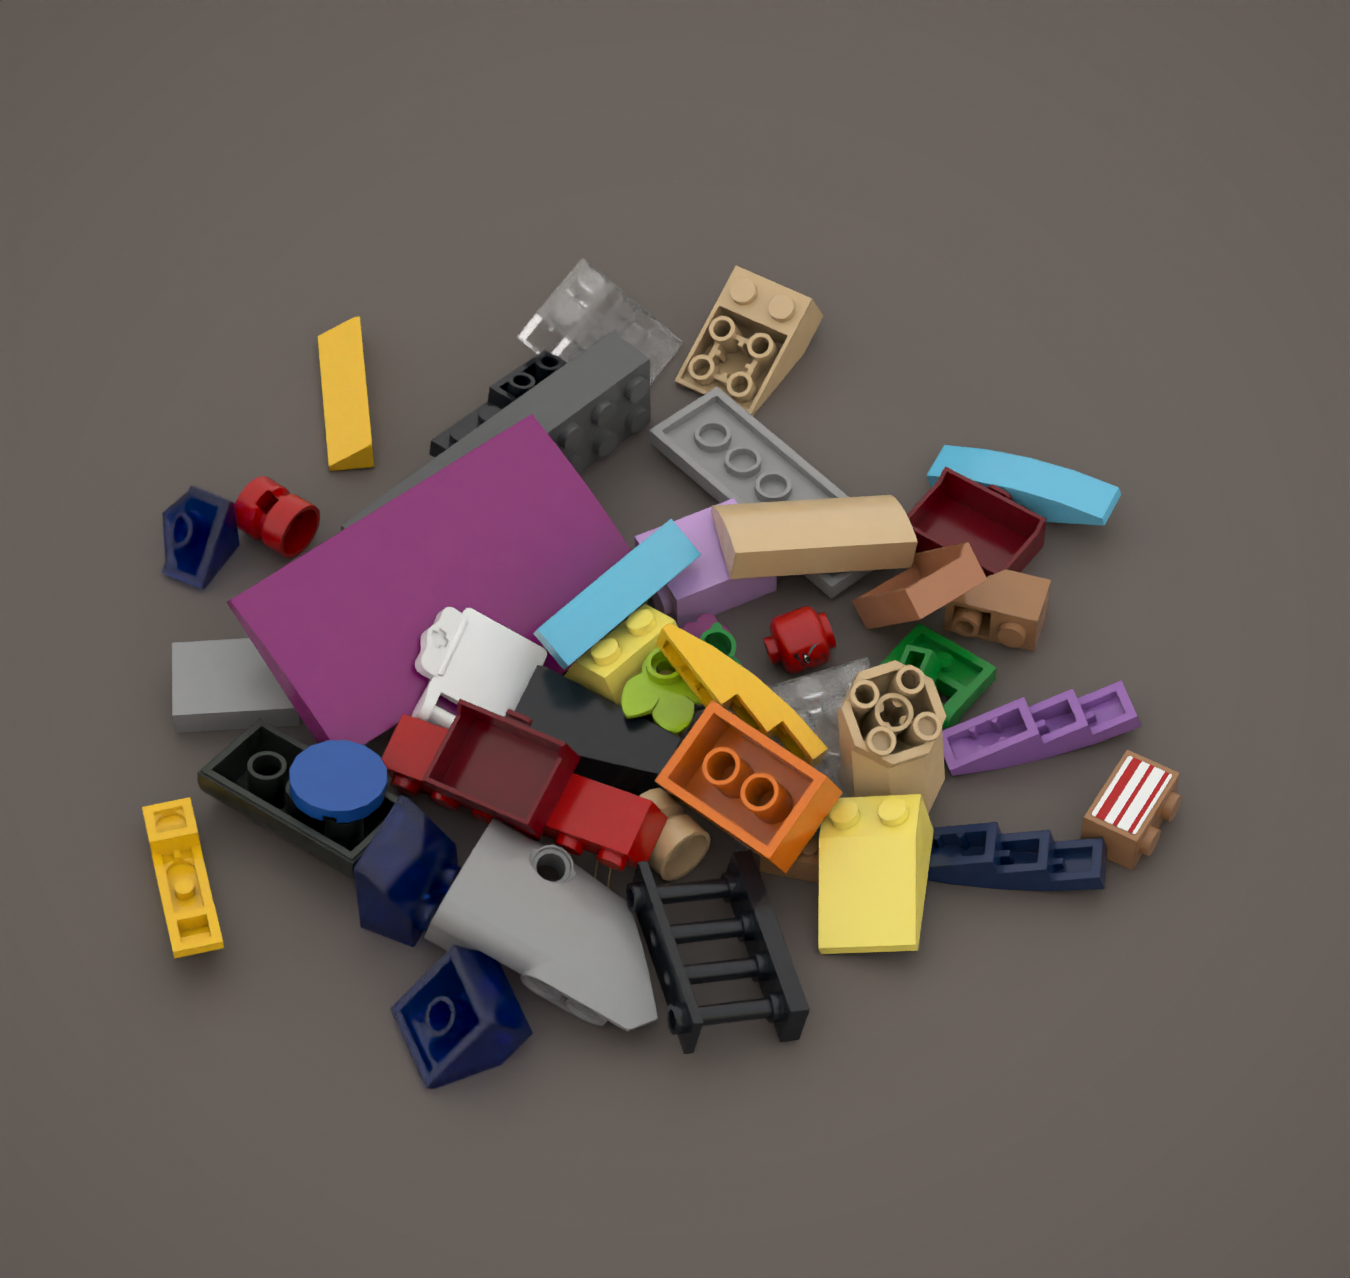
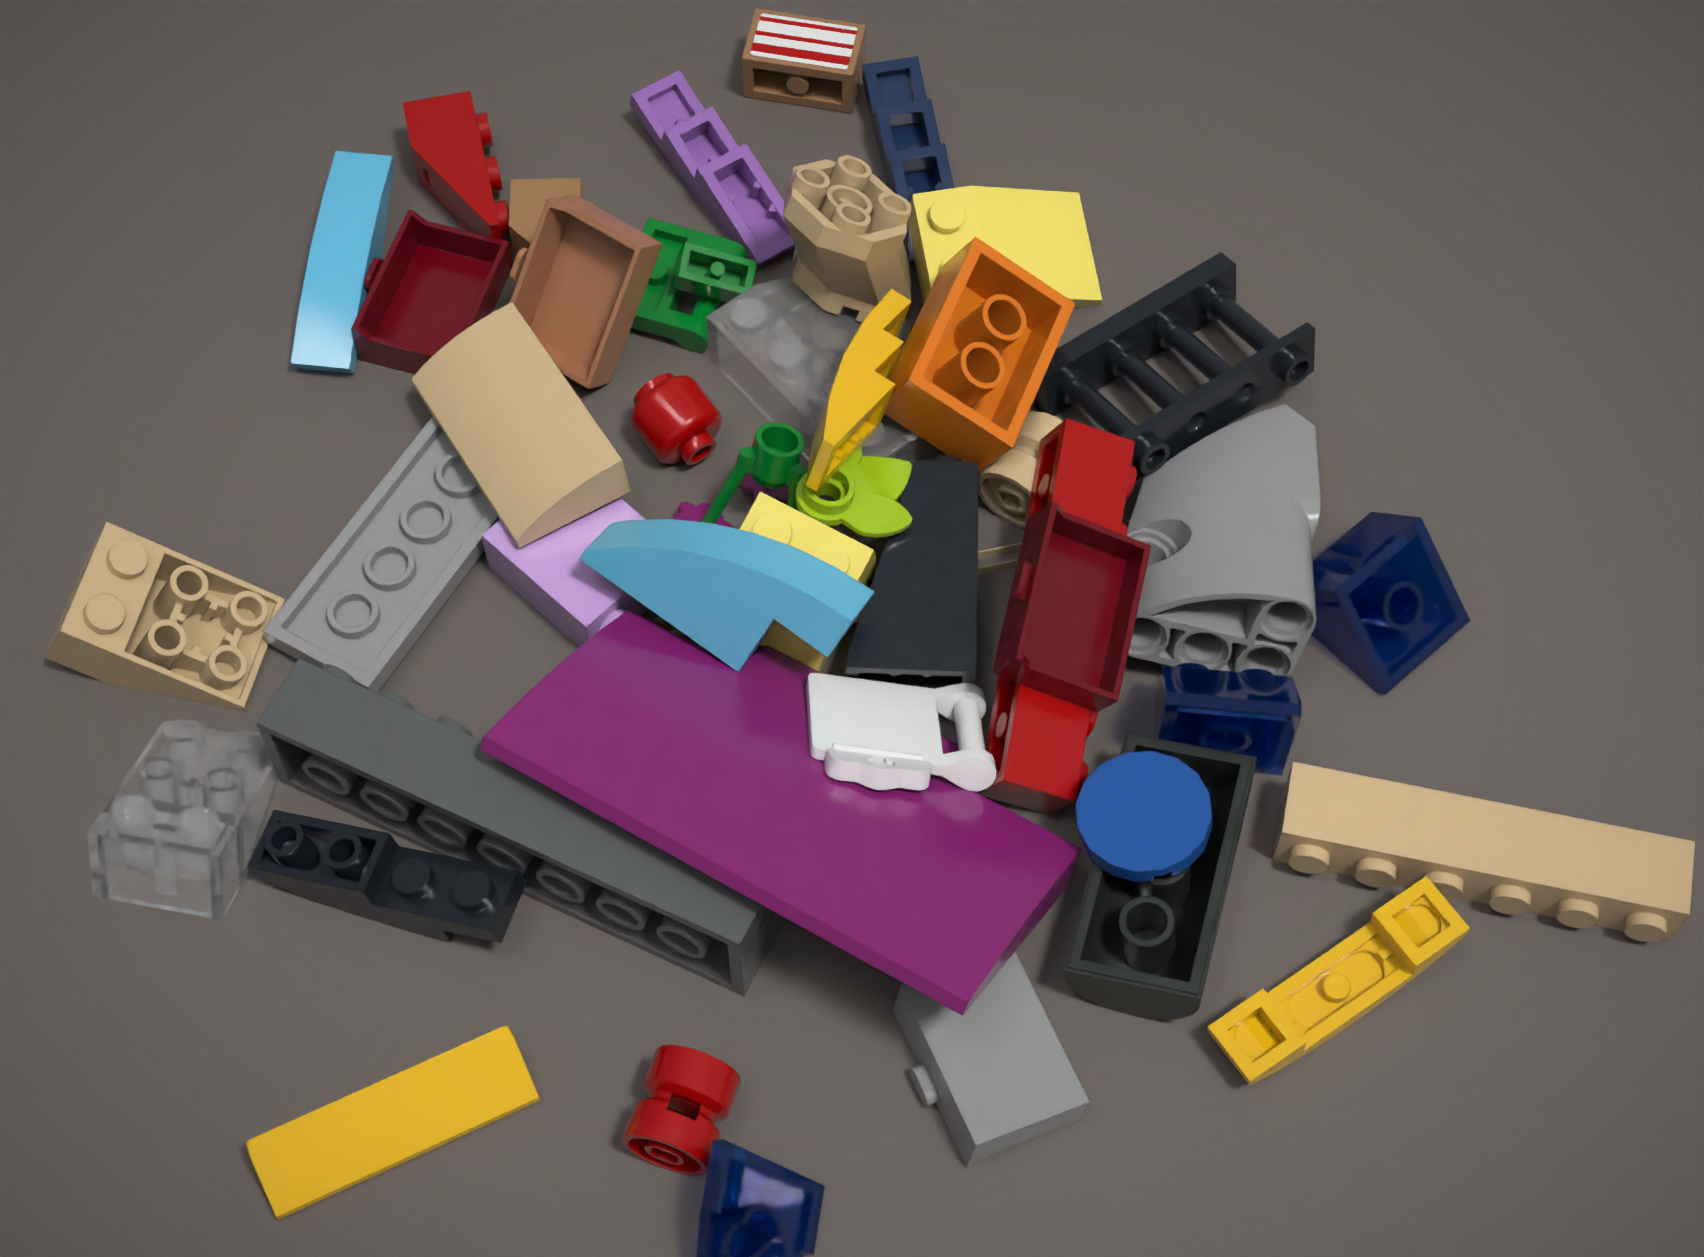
camera: 110 degrees left, 10 degrees up
(231, 1005) = (1485, 852): none -> tan brick
(1094, 567) = (451, 161): none -> red slope

